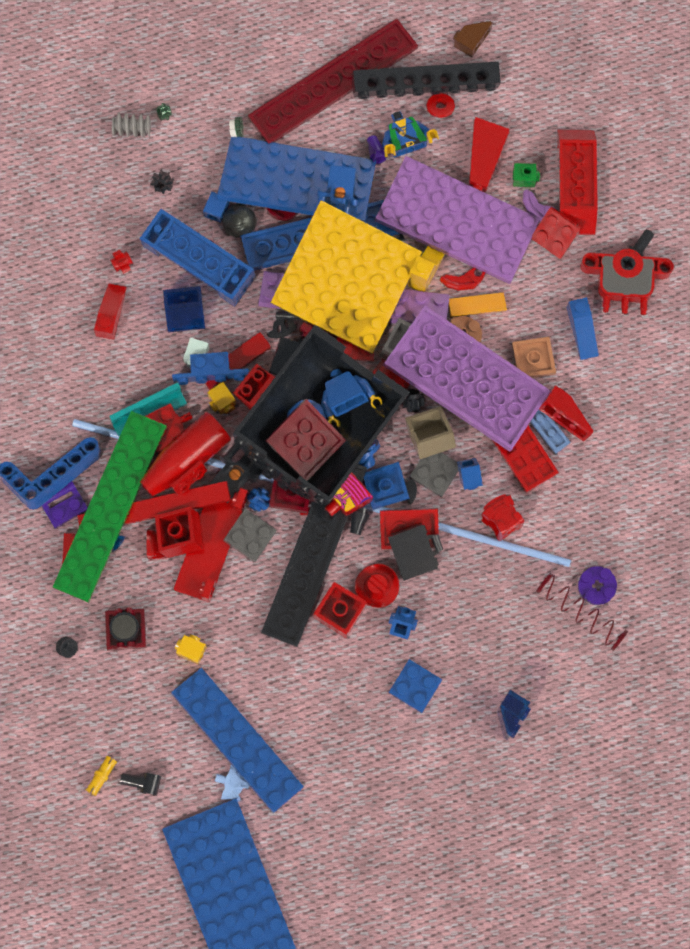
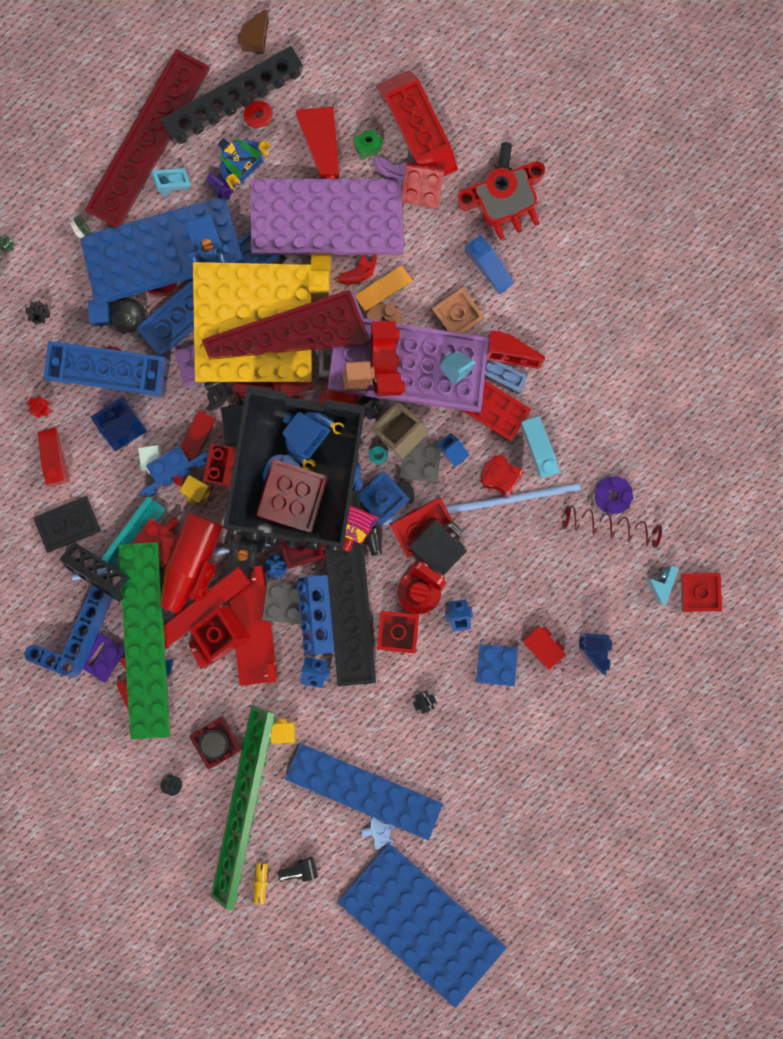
camera: 25 degrees left, 10 degrees up
(92, 424) = (93, 578): none -> black fence
(93, 374) = (67, 524): none -> black tile
(121, 696) = (242, 807): none -> green plate
(246, 609) = (314, 672): none -> blue brick
(281, 554) = (322, 622): none -> blue brick
(332, 685) = (424, 702): none -> black gear
(335, 124) = (170, 180): none -> medium azure slope
(391, 571) = (430, 577): none -> red plate
(399, 304) = (313, 326): none -> dark red wing
(400, 446) = (377, 454): none -> teal plate
(415, 363) = (357, 376): none -> nougat brick
(445, 364) = (384, 359): none -> red brick
(466, 689) = (544, 647): none -> red brick
(508, 399) = (456, 366): none -> medium azure slope
(550, 509) = (540, 447): none -> medium azure slope
(600, 691) = (662, 590): none -> medium azure slope
(636, 712) = (701, 592): none -> red plate

